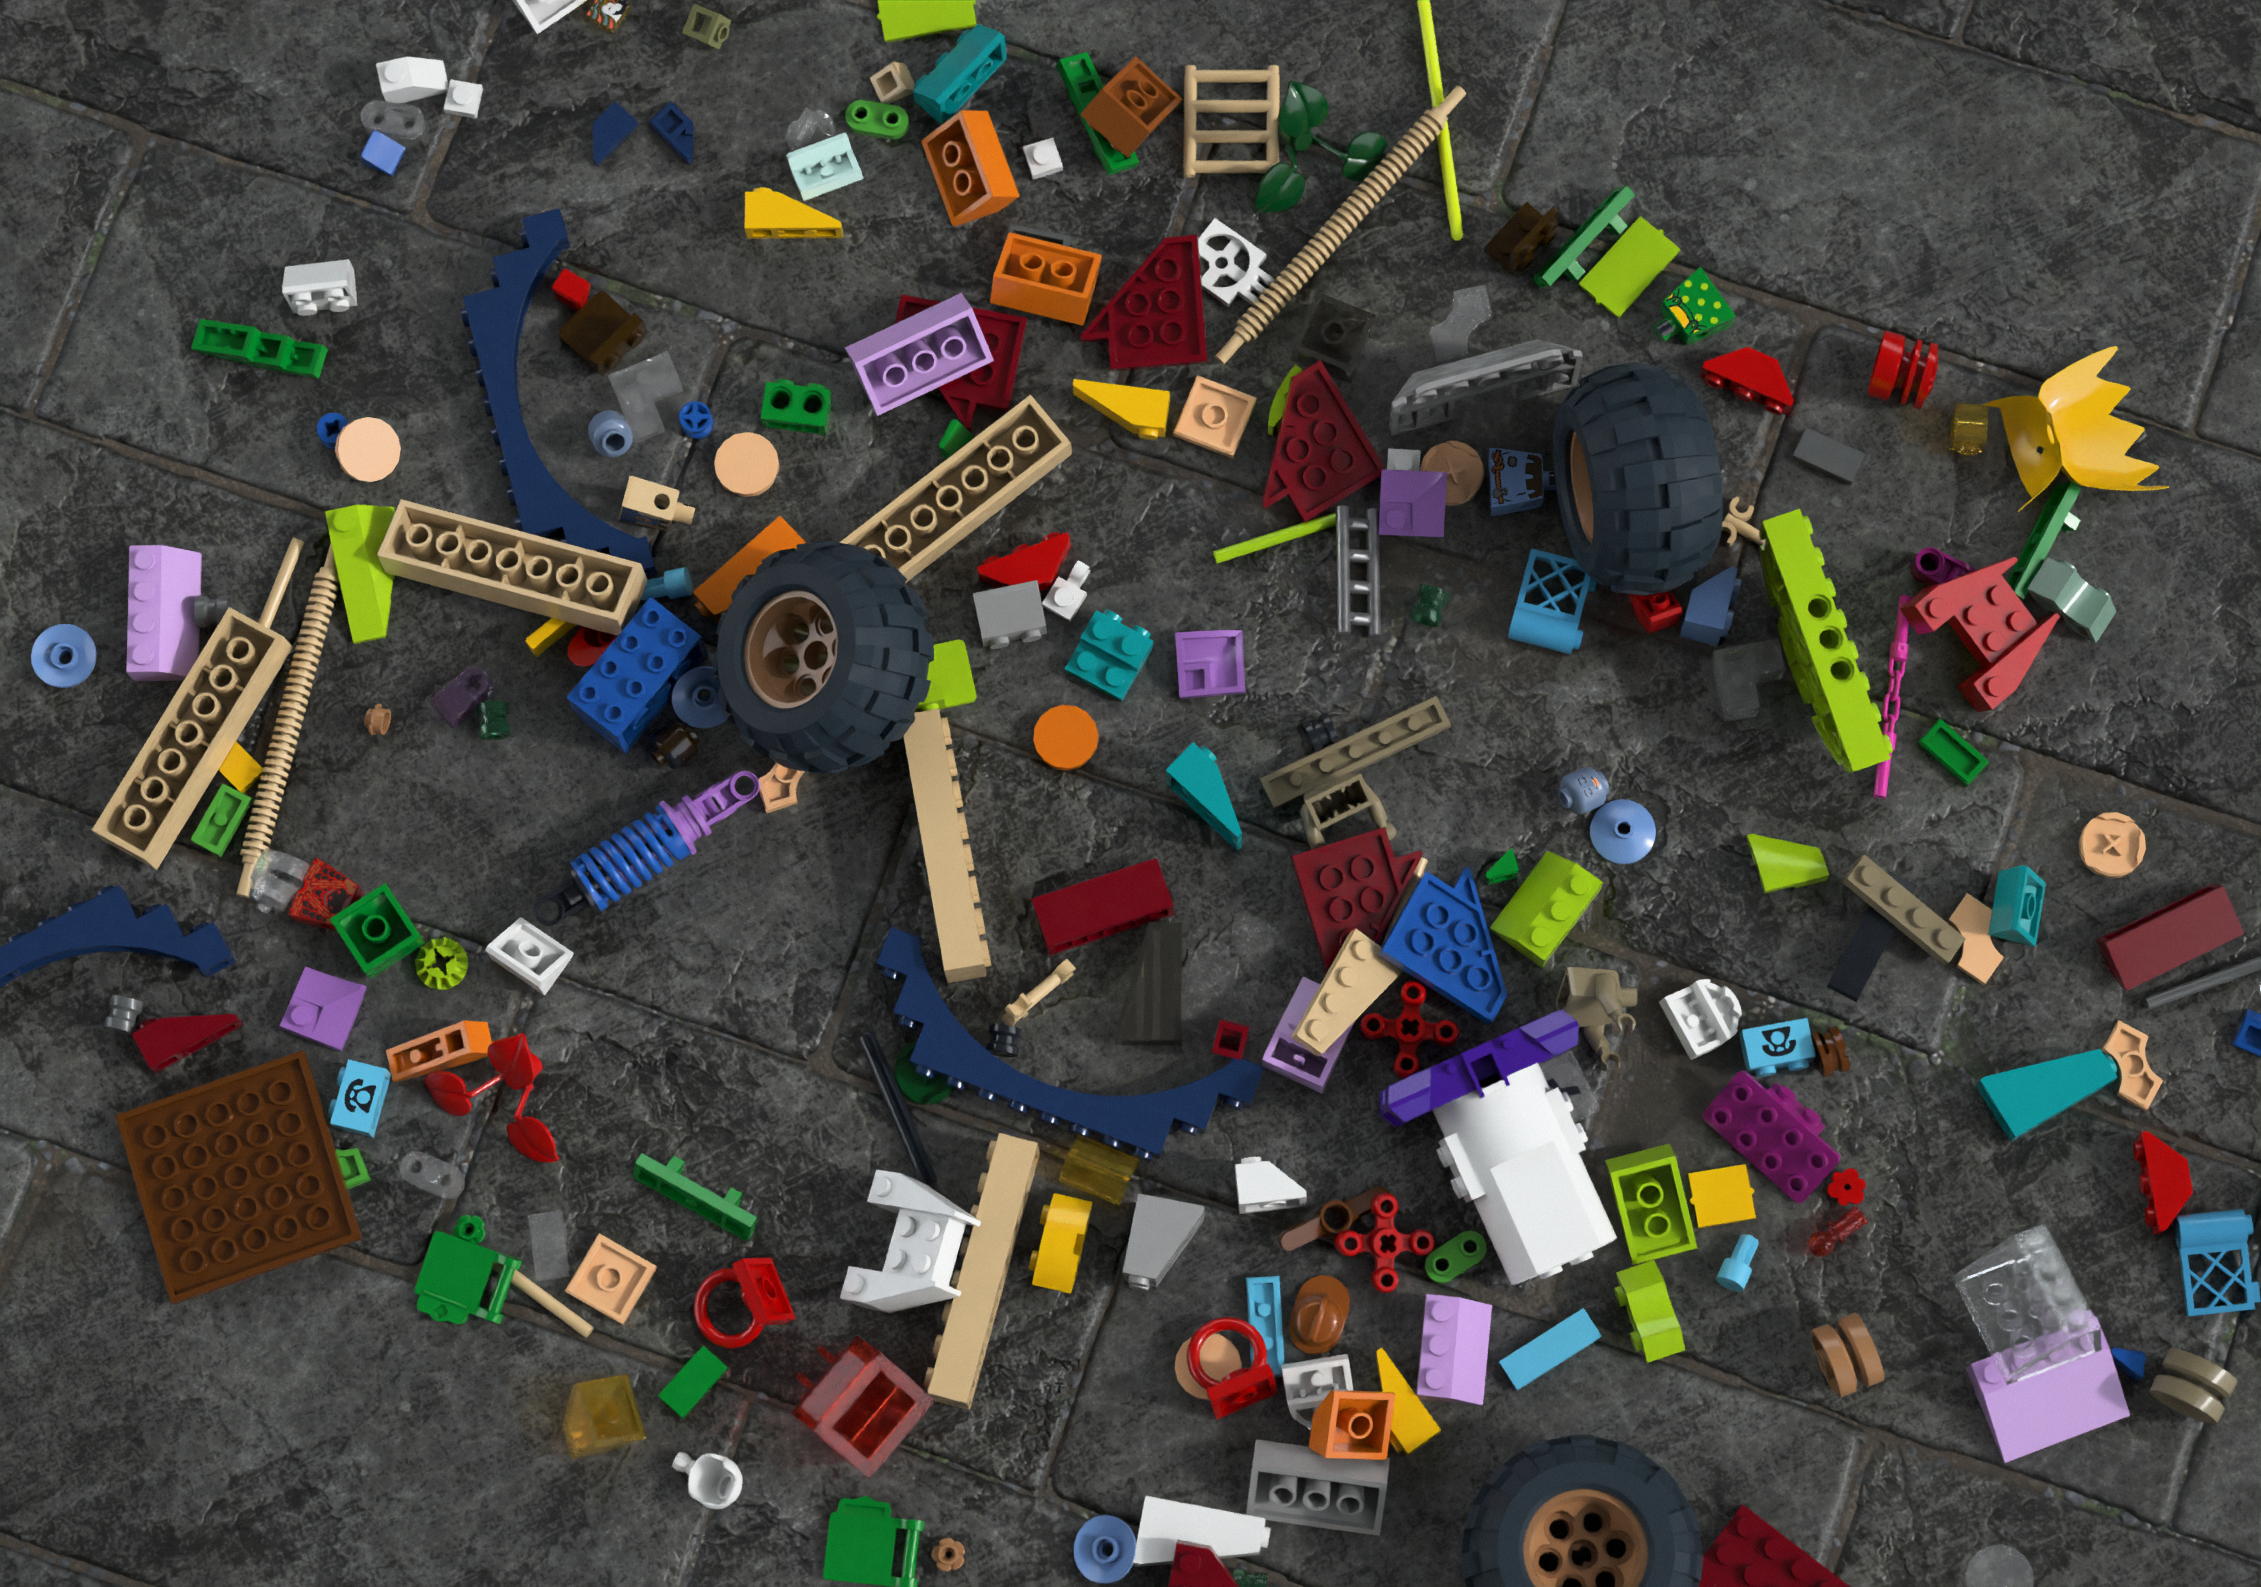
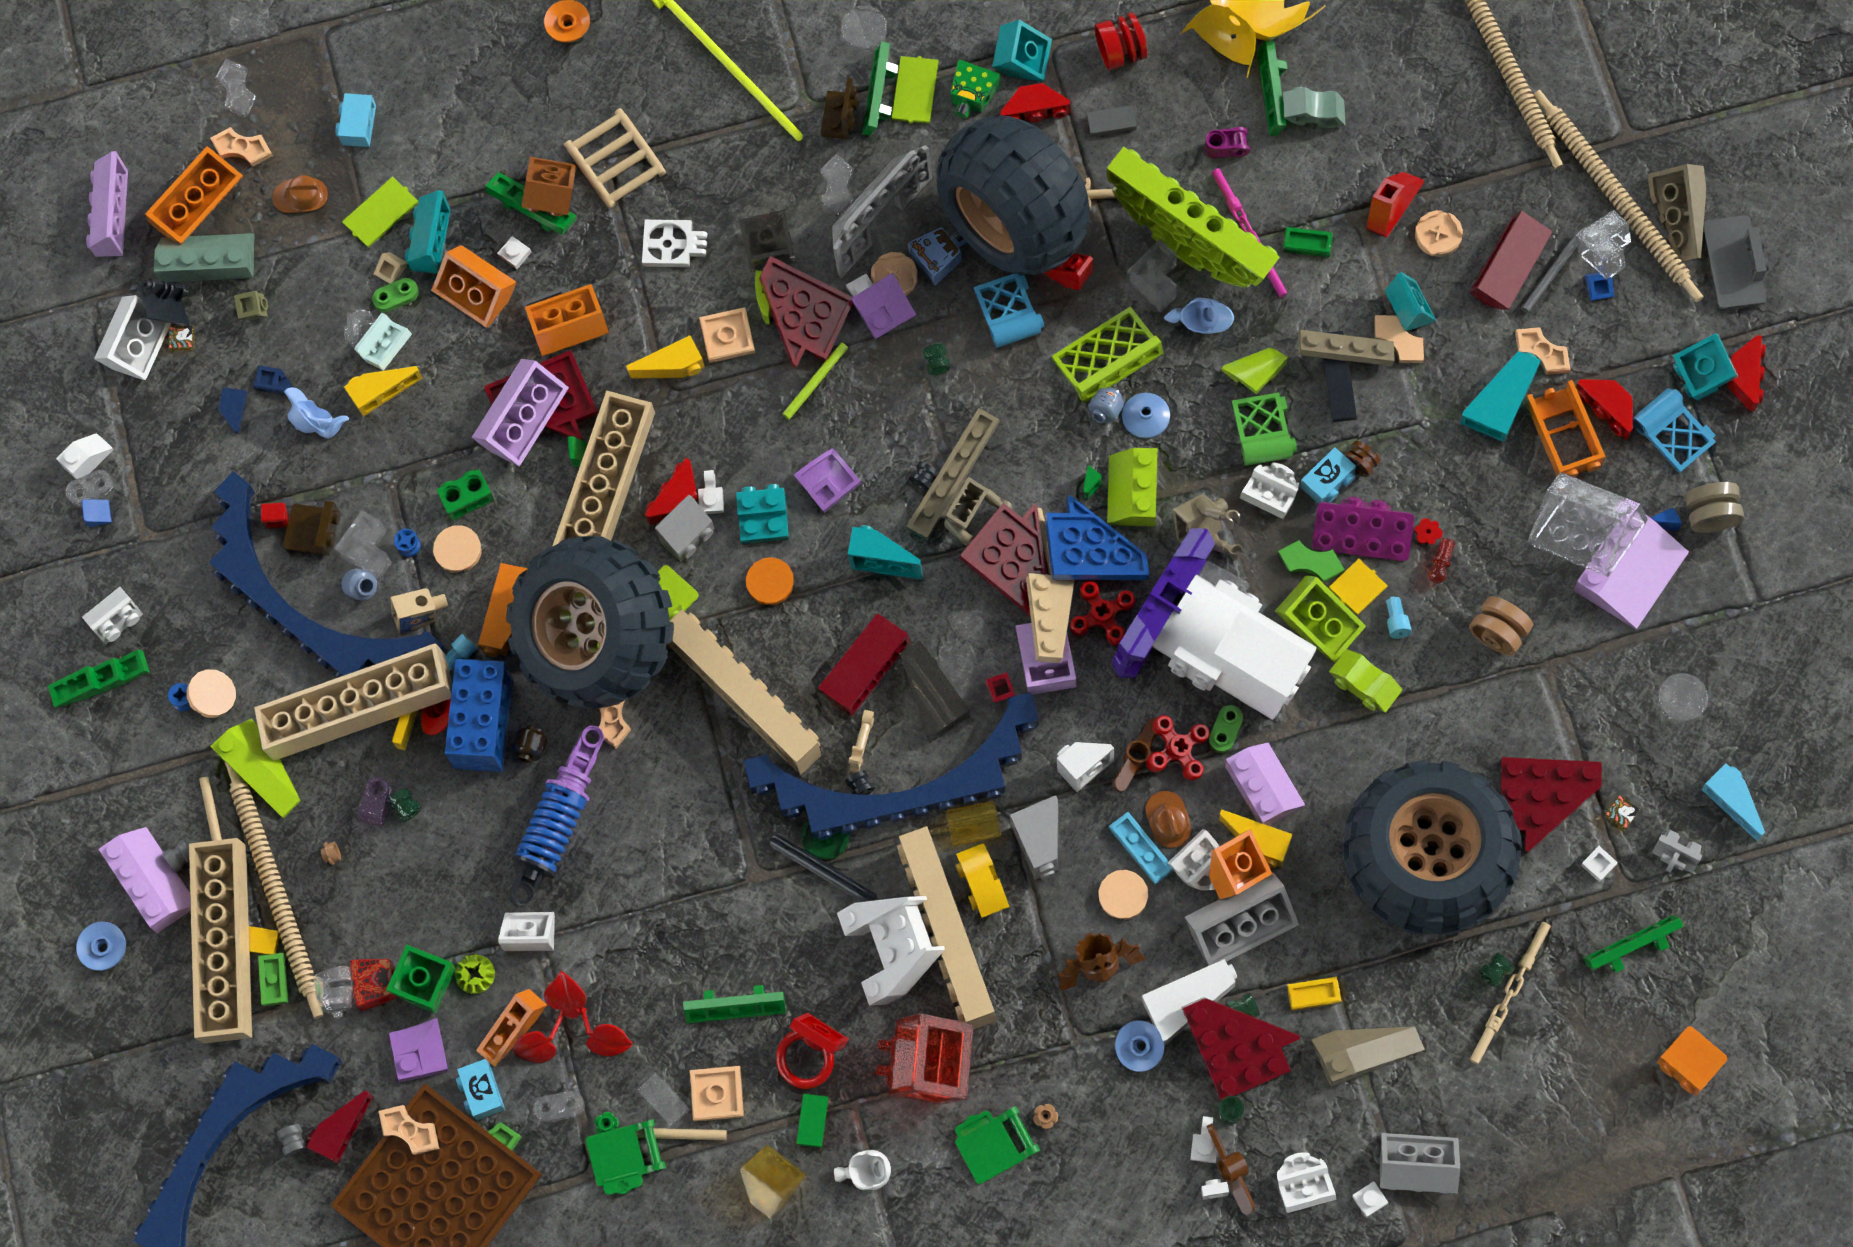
camera: 30 degrees left, 5 degrees down
(256, 1104) = (419, 1136): none -> light nougat tile
(463, 99) = (125, 447): white plate -> none
(685, 201) = (310, 418): none -> light blue hair
(692, 708) = (532, 714): medium blue dish -> none
(1126, 1421) = (1098, 959): none -> reddish brown helmet
(1157, 312) = (649, 295): dark red wing -> none
(1240, 1387) = (1153, 890): red tile -> none
(1299, 112) = (657, 116): dark green plant -> none
(1340, 224) = (724, 175): tan hose -> none
(1344, 584) = (879, 355): flat silver bar -> none
(1550, 1349) = (1321, 745): medium azure tile -> none
(1622, 153) = (864, 28): none -> clear tile
(1634, 756) = (1122, 365): none -> lime fence
(1678, 1118) = (1301, 559): none -> bright green tile
(1707, 608) = (1107, 250): medium blue slope -> none
(1738, 964) = (1266, 446): none -> bright green piece
(1765, 760) = (1203, 316): none -> light blue hair
(1782, 304) = (1022, 51): none -> teal slope
(1968, 428) = (1183, 51): clear yellow brick -> none
(1990, 625) = (1279, 153): wedge -> none
(2083, 771) = (1391, 202): none -> red slope
(2098, 1137) = (1558, 403): none -> orange door

